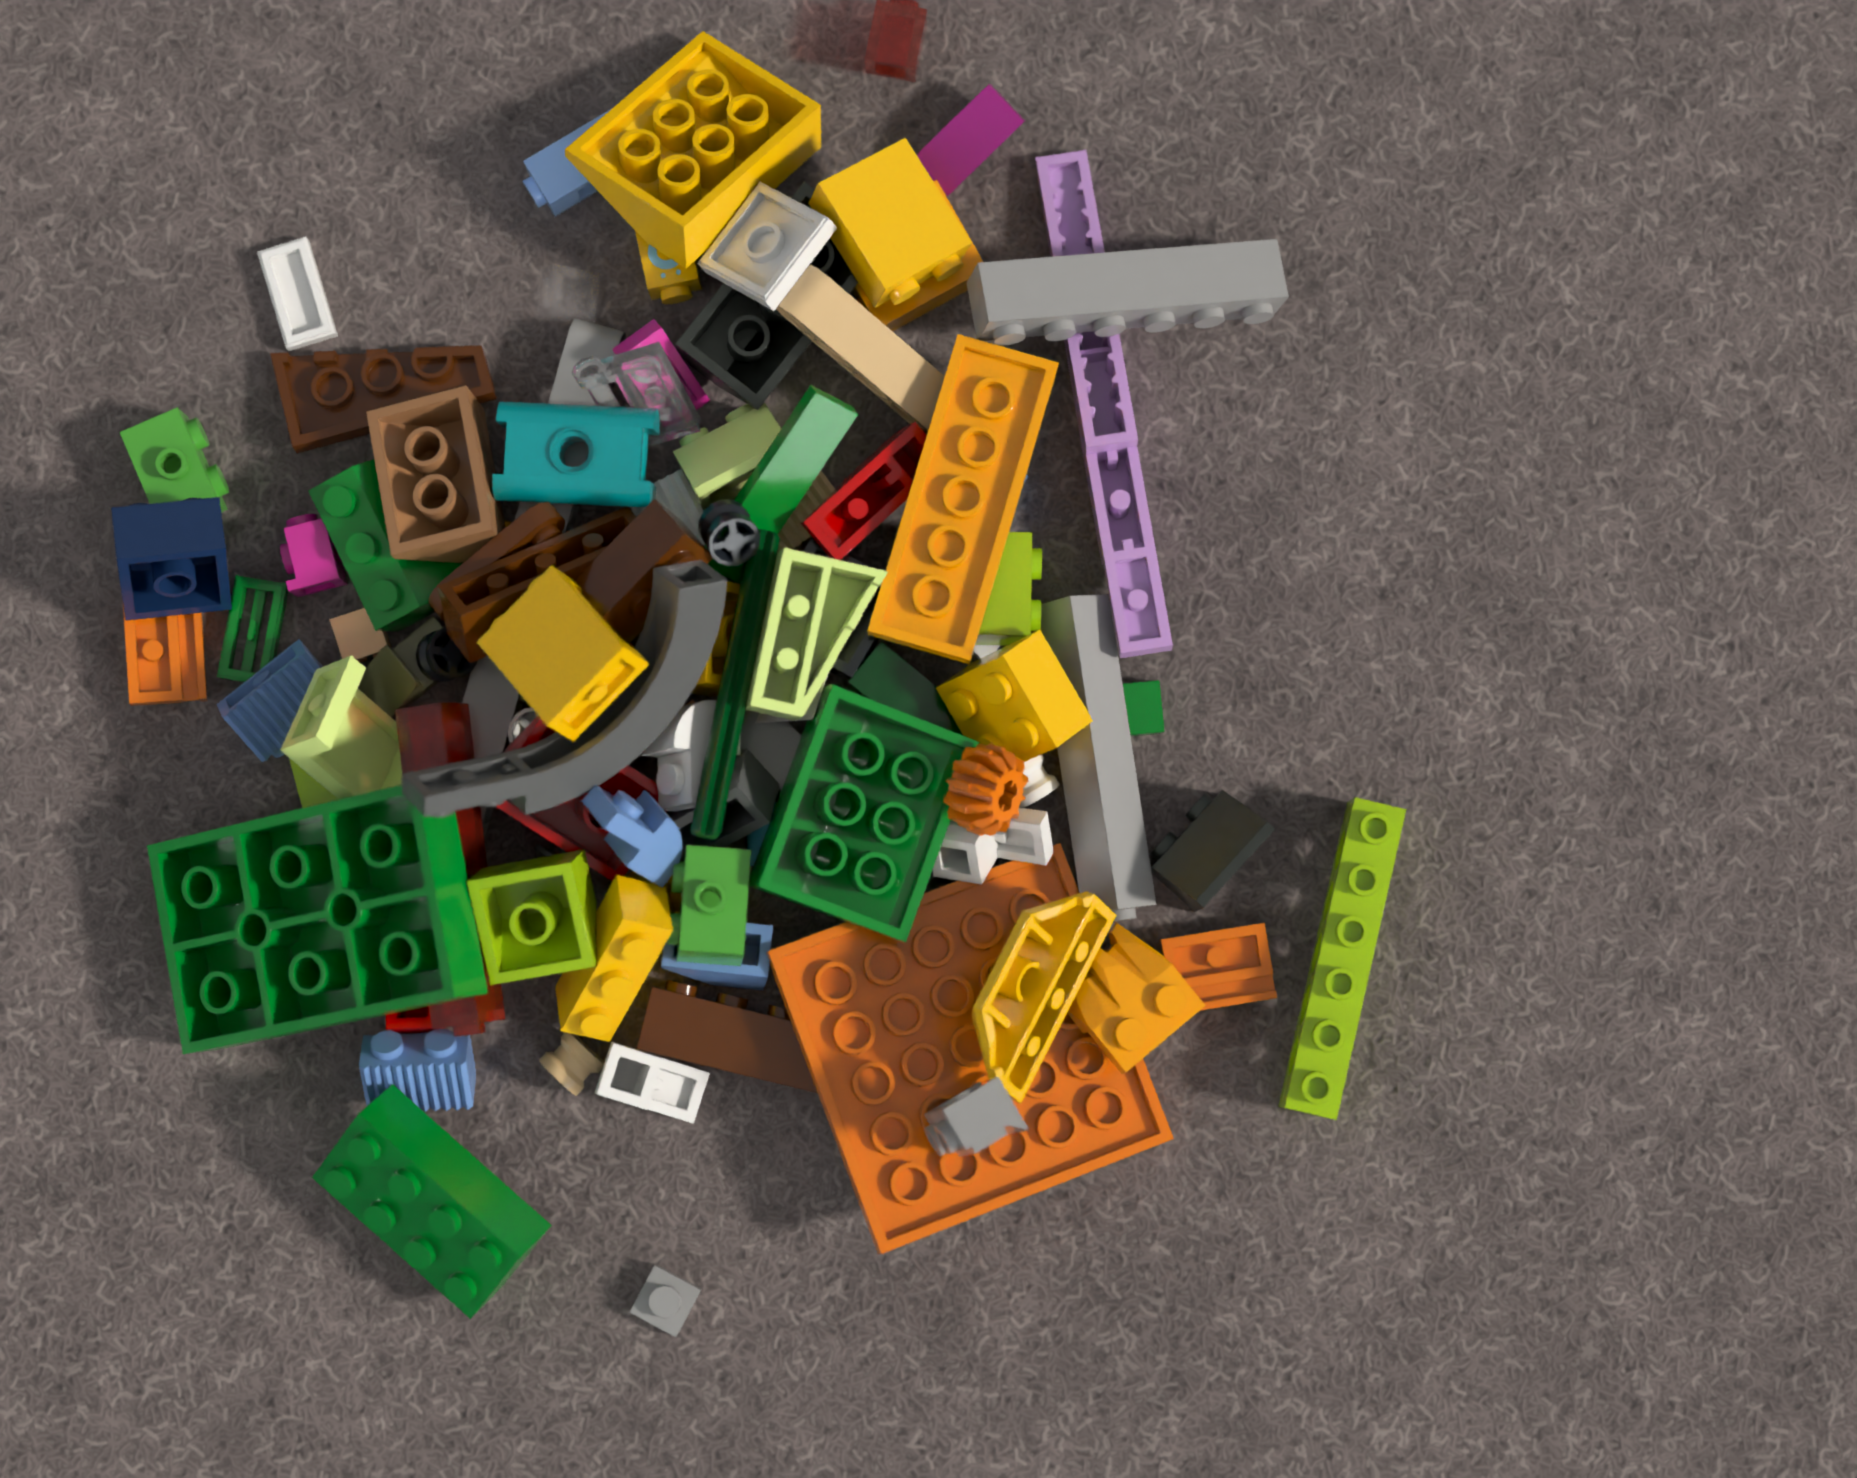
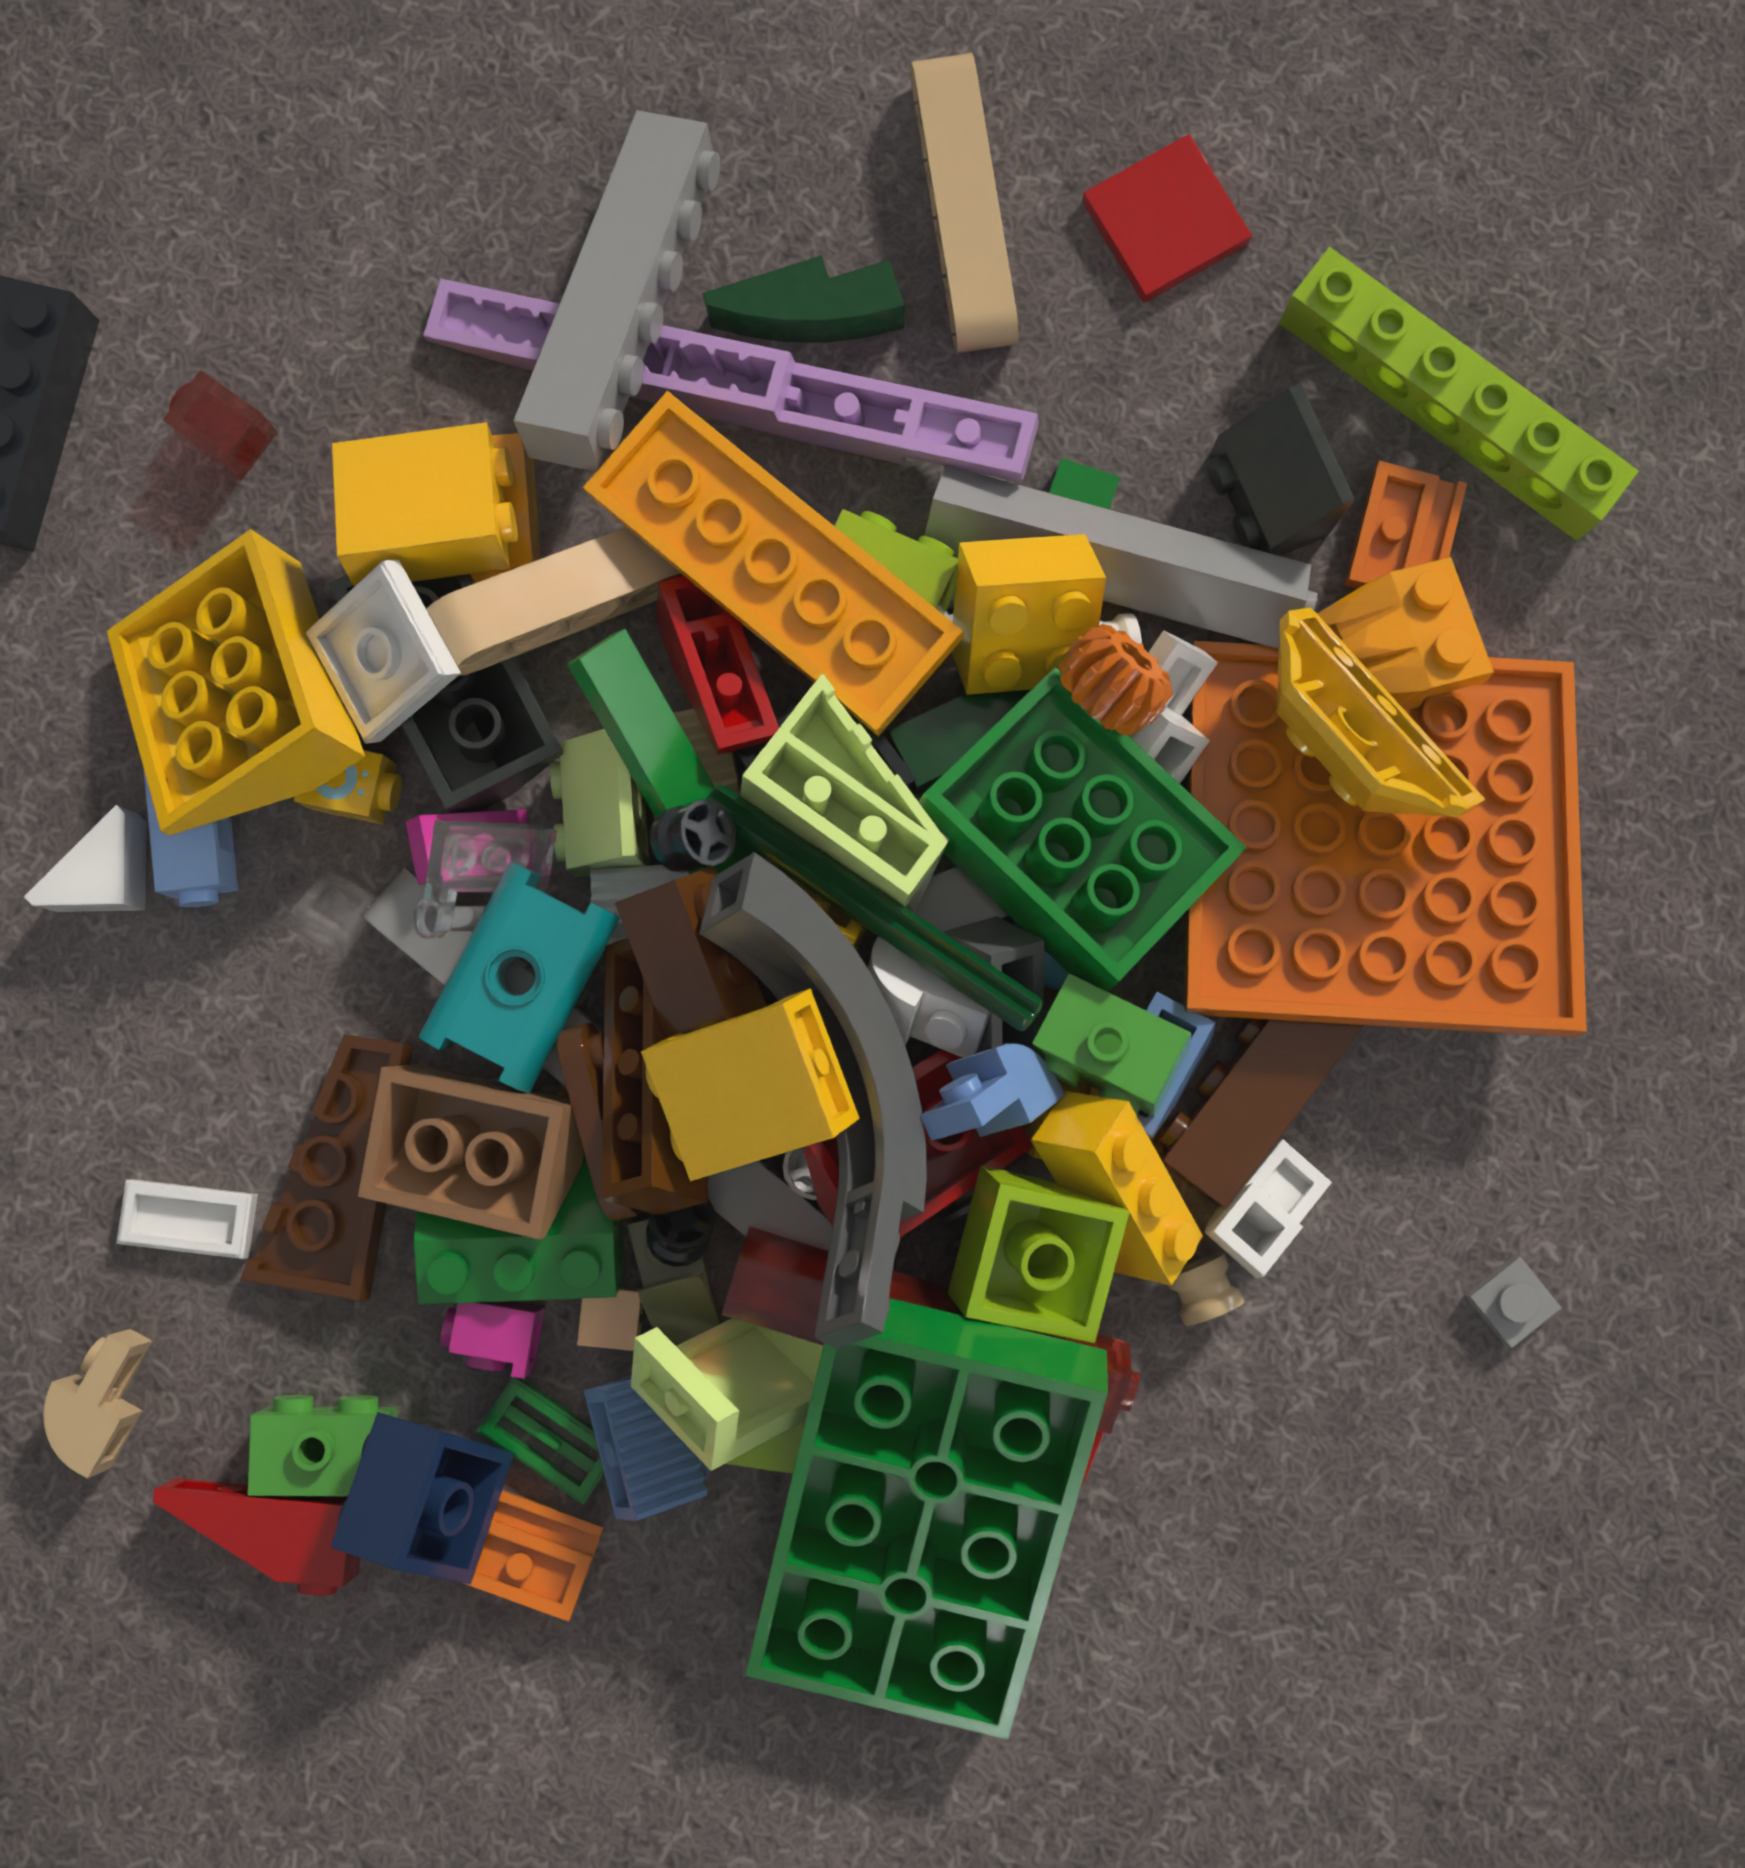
camera: 60 degrees left, 0 degrees up
(100, 464) = (274, 1534): none -> red slope
(125, 290) = (86, 1414): none -> tan brick
(426, 1067) = (1141, 1473): medium blue brick -> none
(431, 1200) = (1303, 1520): green brick -> none
(523, 112) = (101, 870): none -> white slope
(969, 139) = (365, 386): magenta slope -> none
(973, 1119) = (1489, 857): light grey window -> none
(1190, 437) = (809, 306): none -> dark green slope
(1325, 517) = (965, 203): none -> tan beam
(1388, 678) = (1166, 218): none -> red tile

